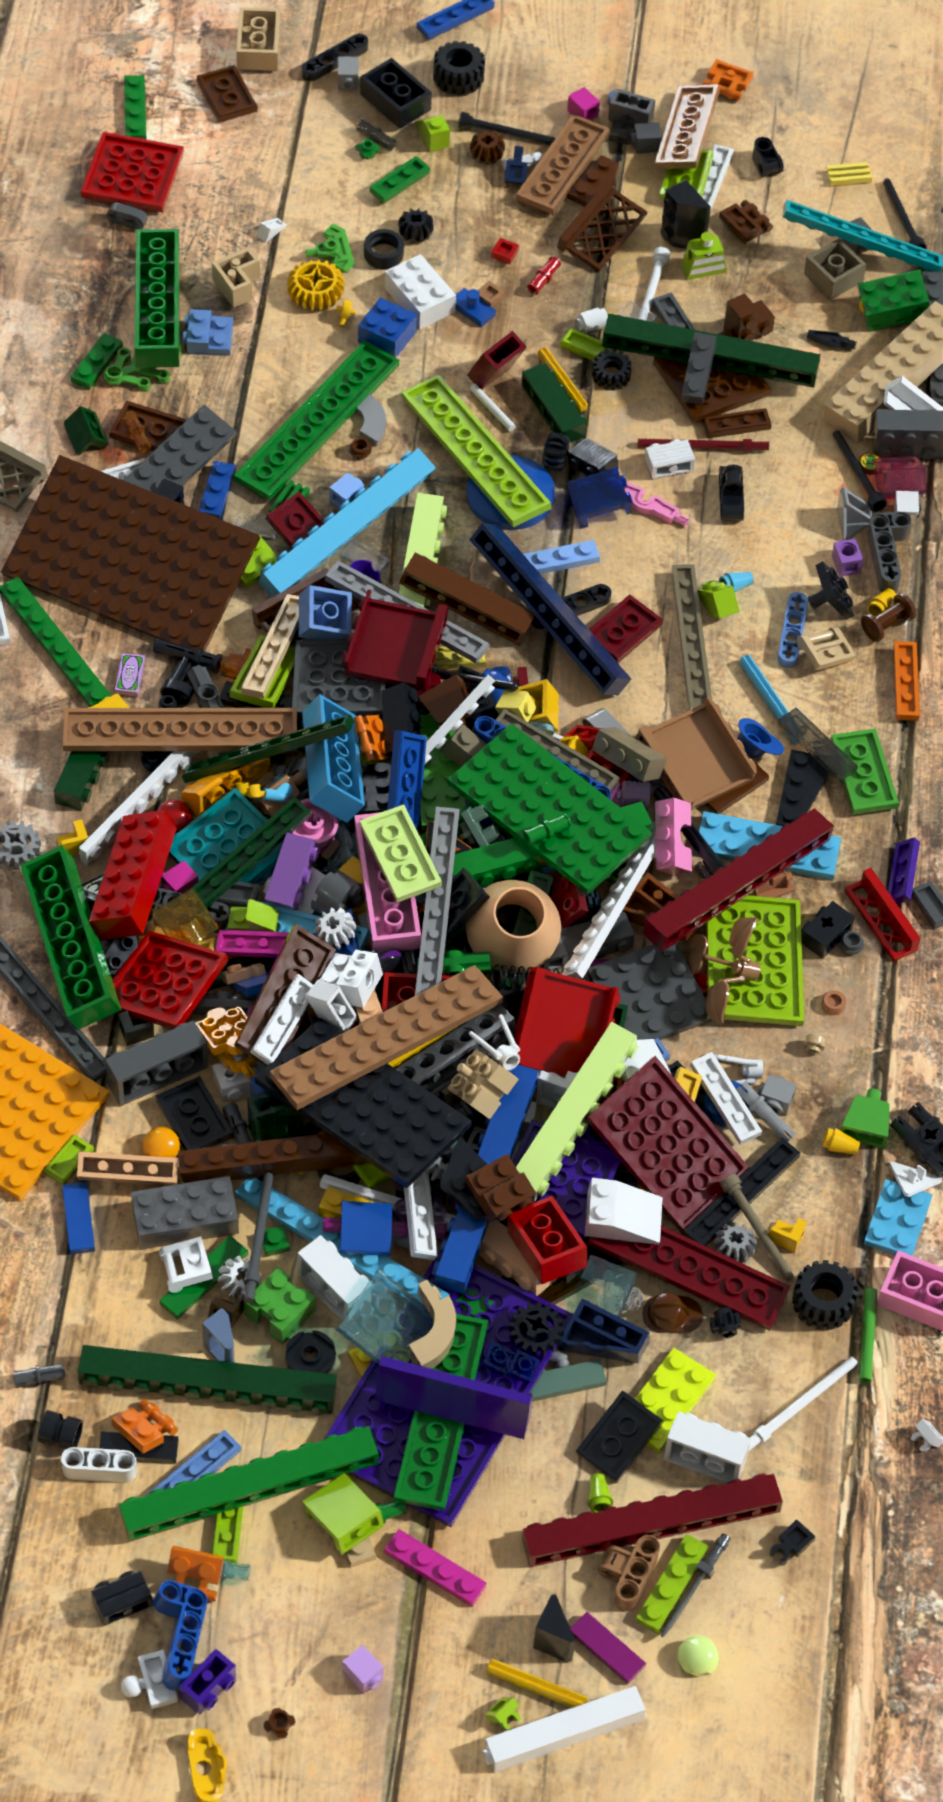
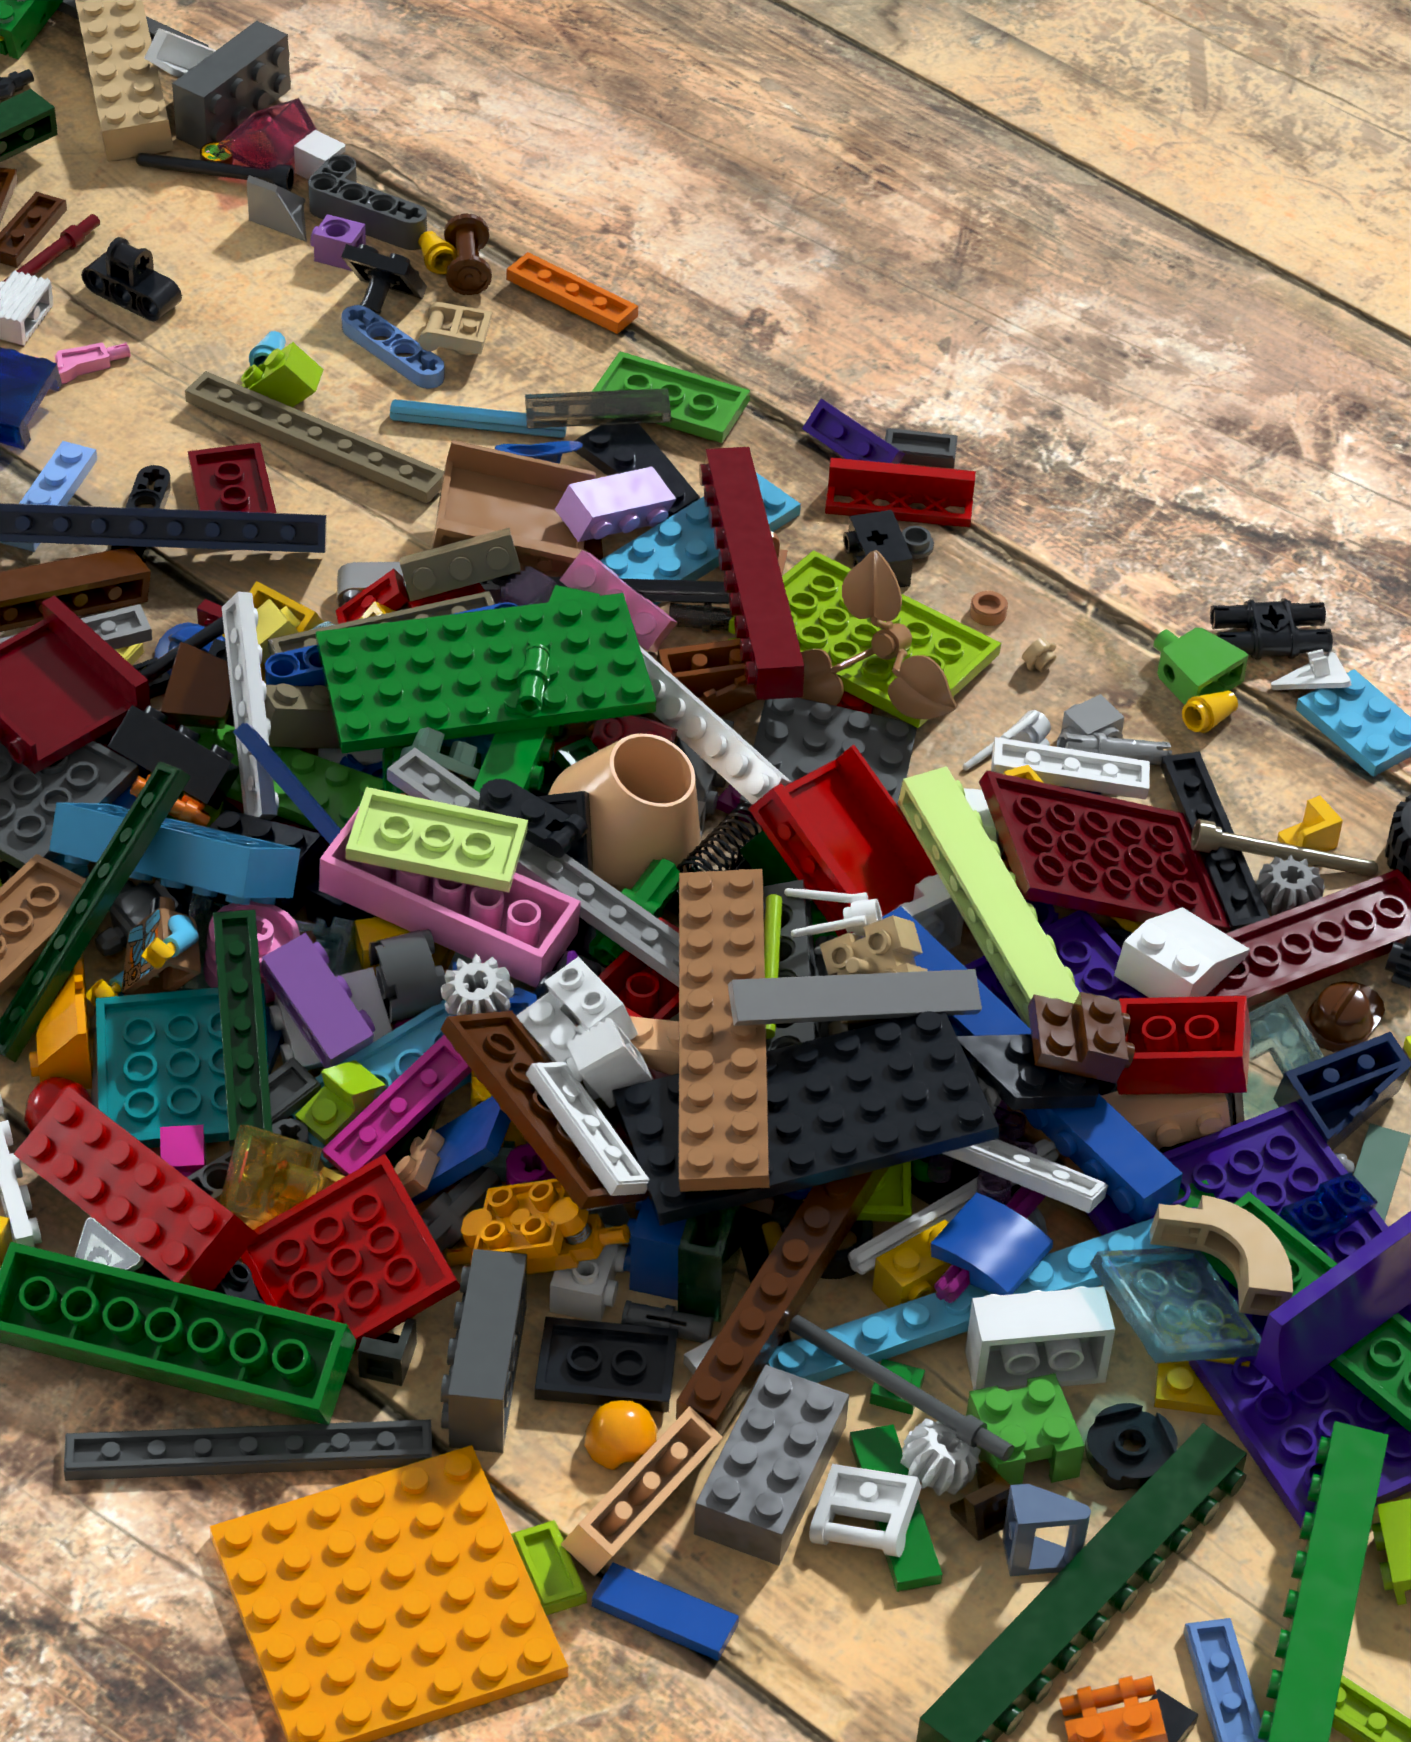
camera: 55 degrees left, 10 degrees down
(440, 1079) = (853, 997): none -> light grey tile
(449, 1036) = (772, 934): none -> lime bar
(454, 881) = (512, 800): none -> black plate
(533, 1319) = (1299, 1147): black gear -> none
(747, 794) = (615, 504): none -> brick

